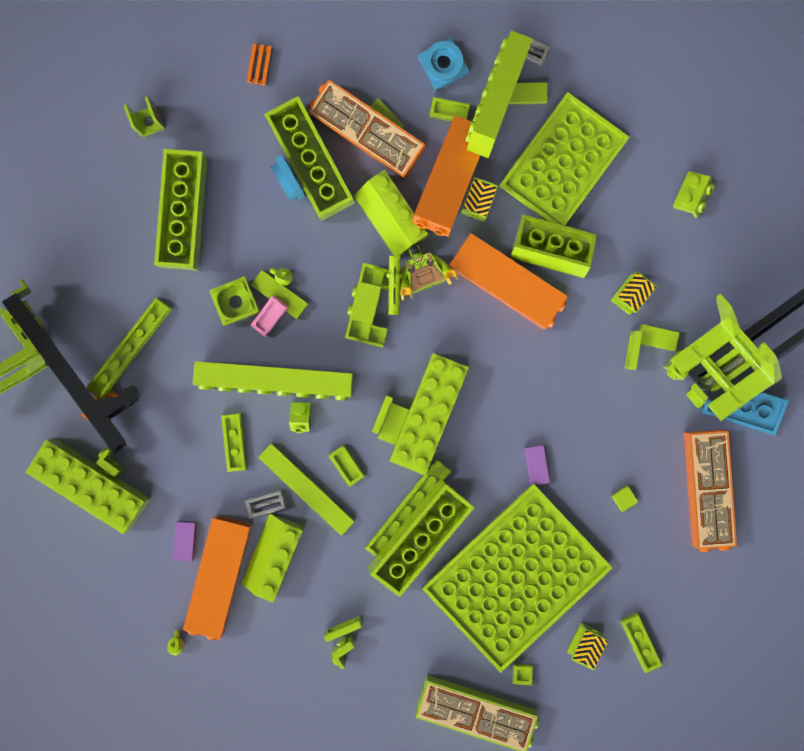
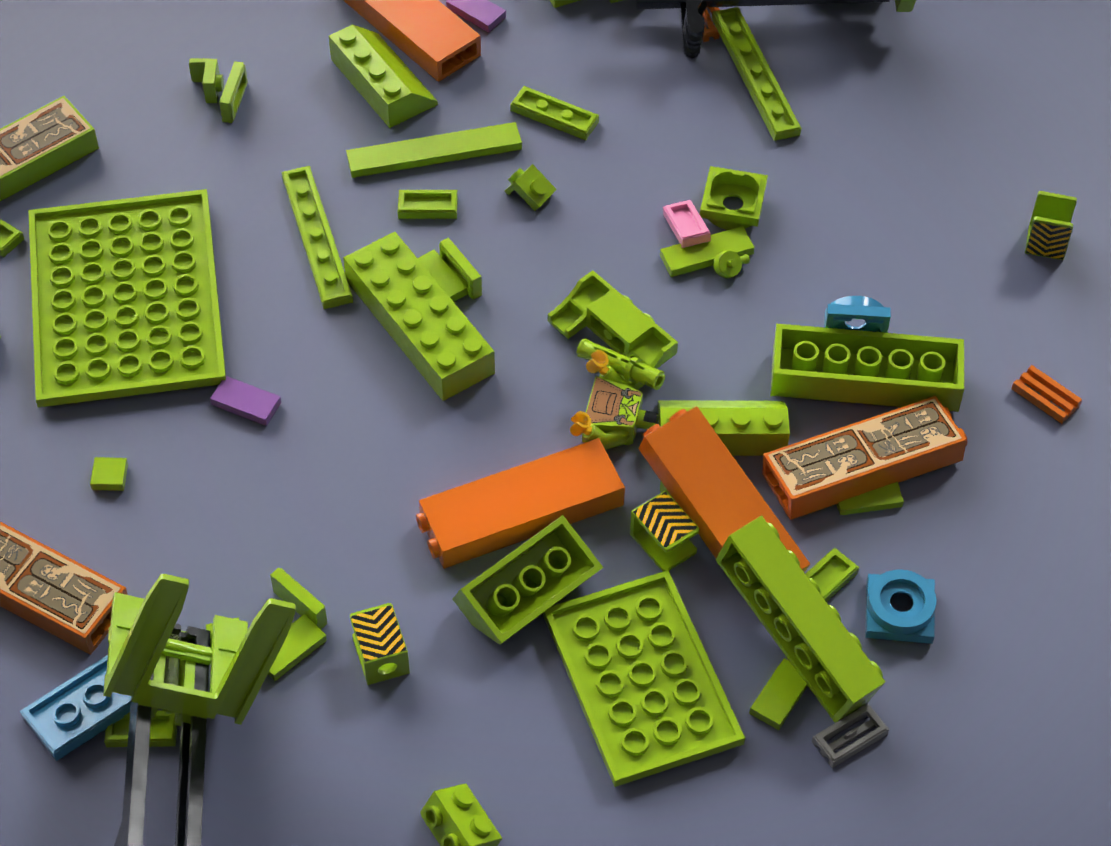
camera: 130 degrees right, 35 degrees down
(181, 209) = (896, 201): lime brick -> none
(269, 379) = (596, 179): lime brick -> none
(281, 499) = (446, 119): light grey tile -> none
(420, 538) = (271, 217): lime brick -> none

